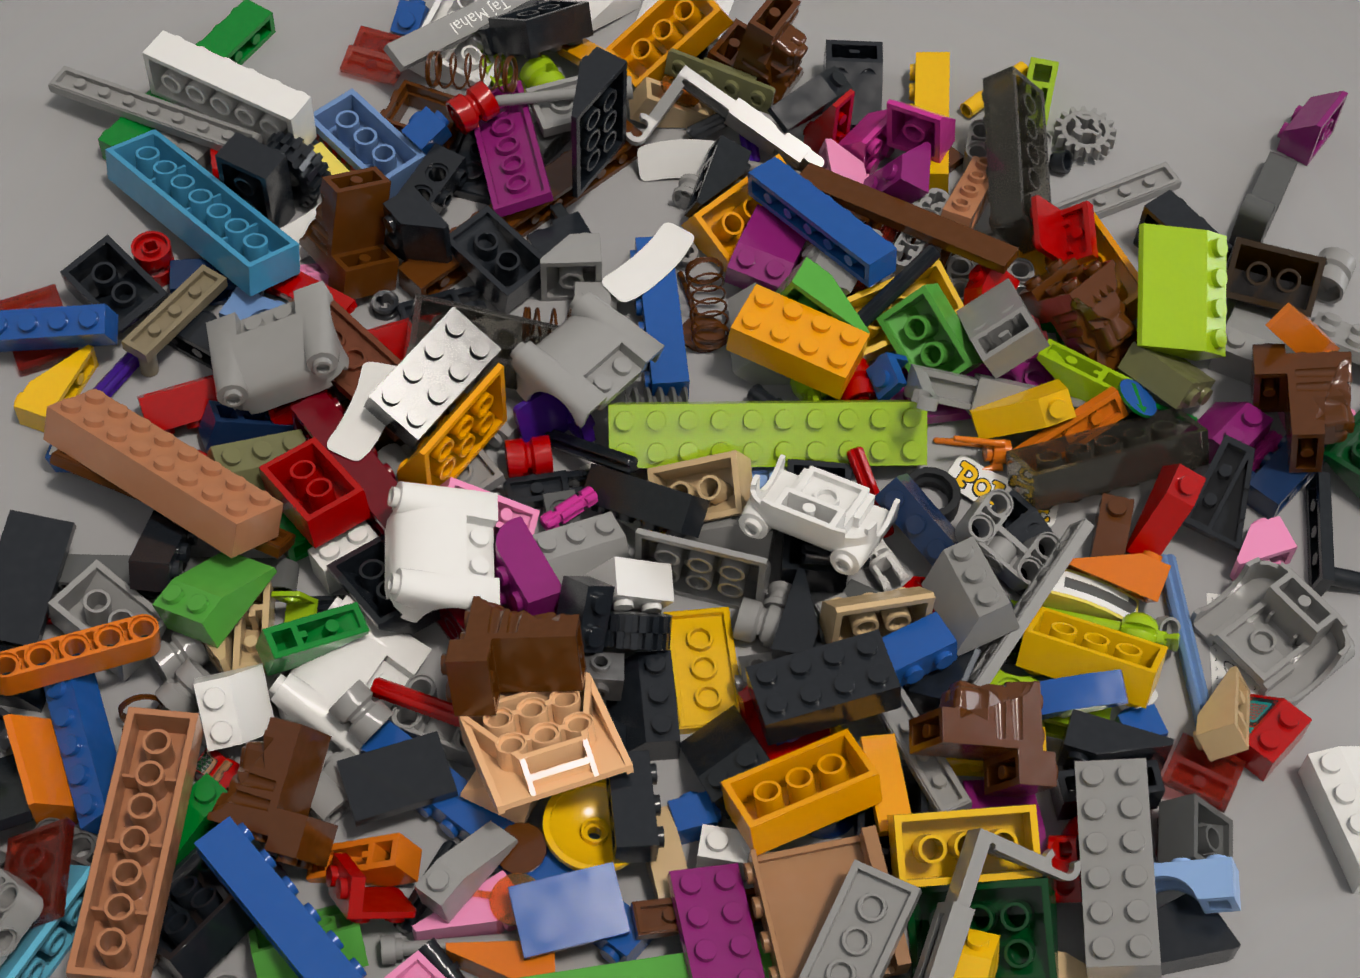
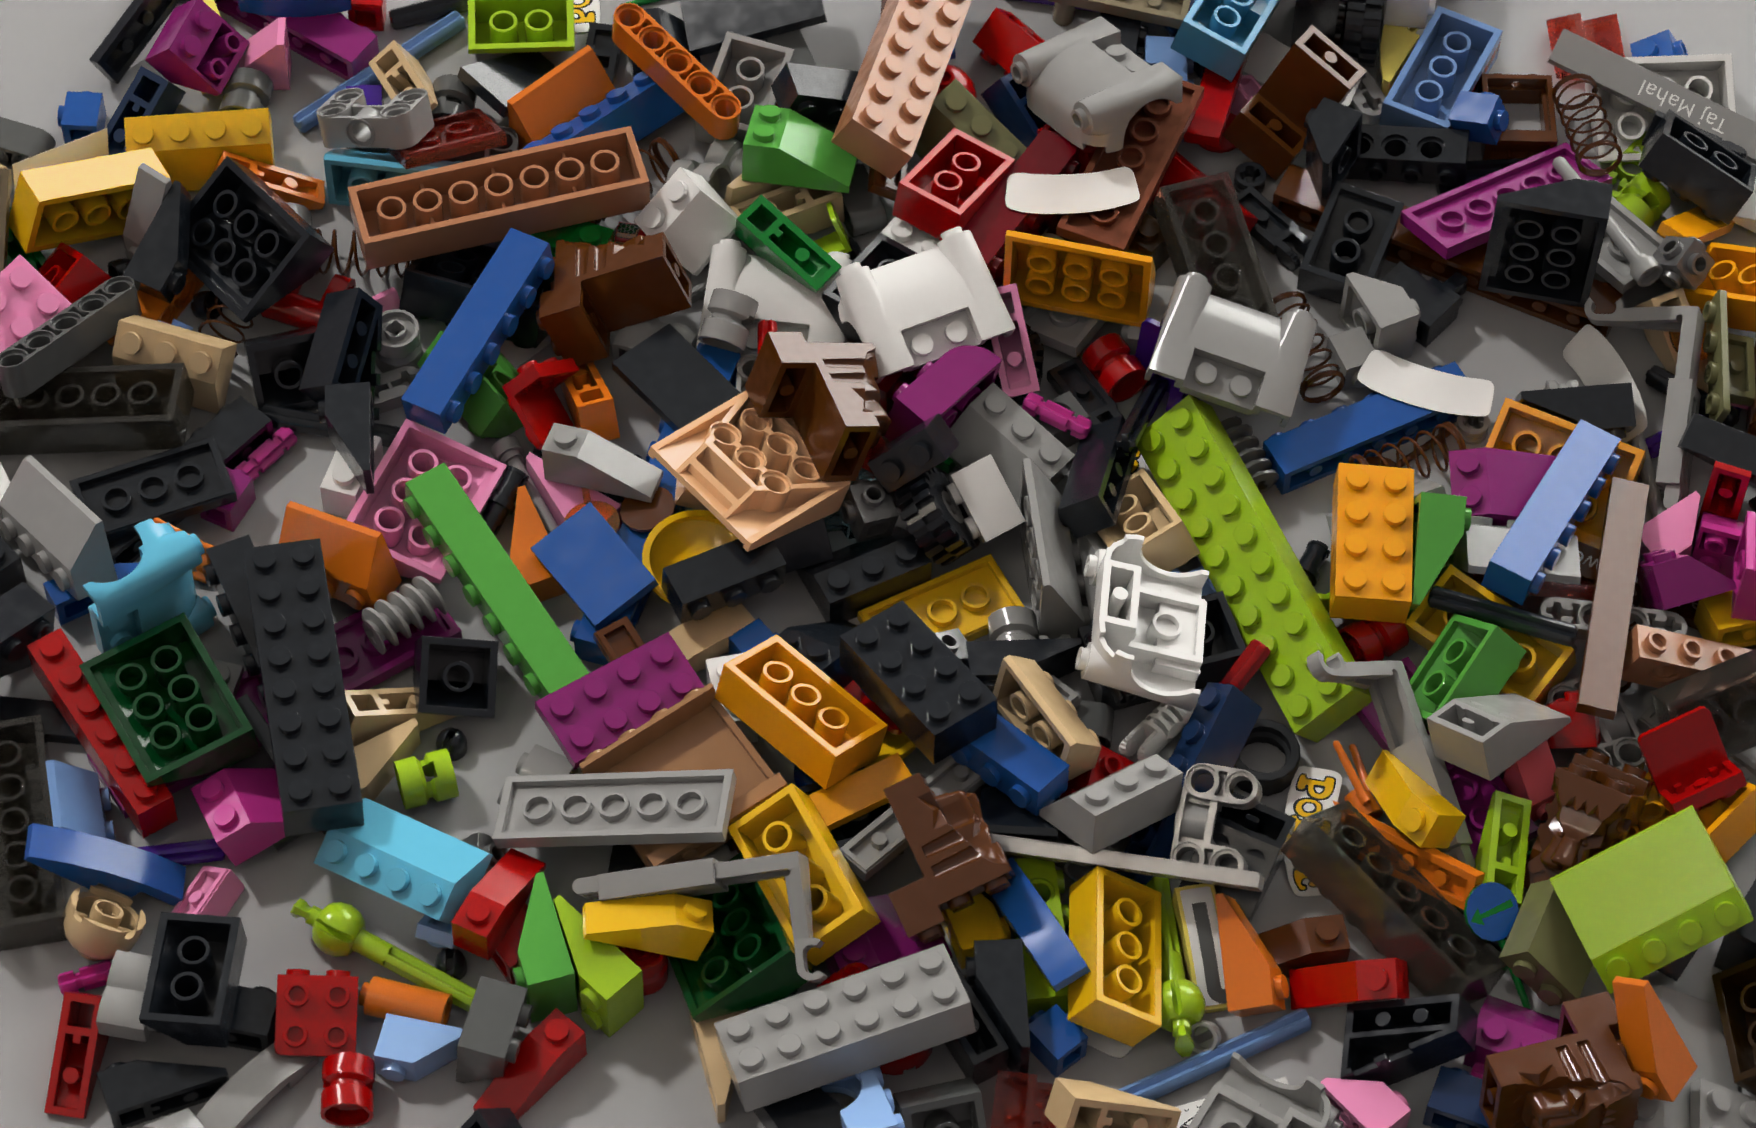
camera: 70 degrees right, 0 degrees up
(432, 377) = (1130, 218): brick -> none
(474, 106) = (1530, 142): red wheel -> none
(637, 61) = (1683, 262): none -> flat silver brick
(887, 375) = (1393, 646): blue bracket -> none

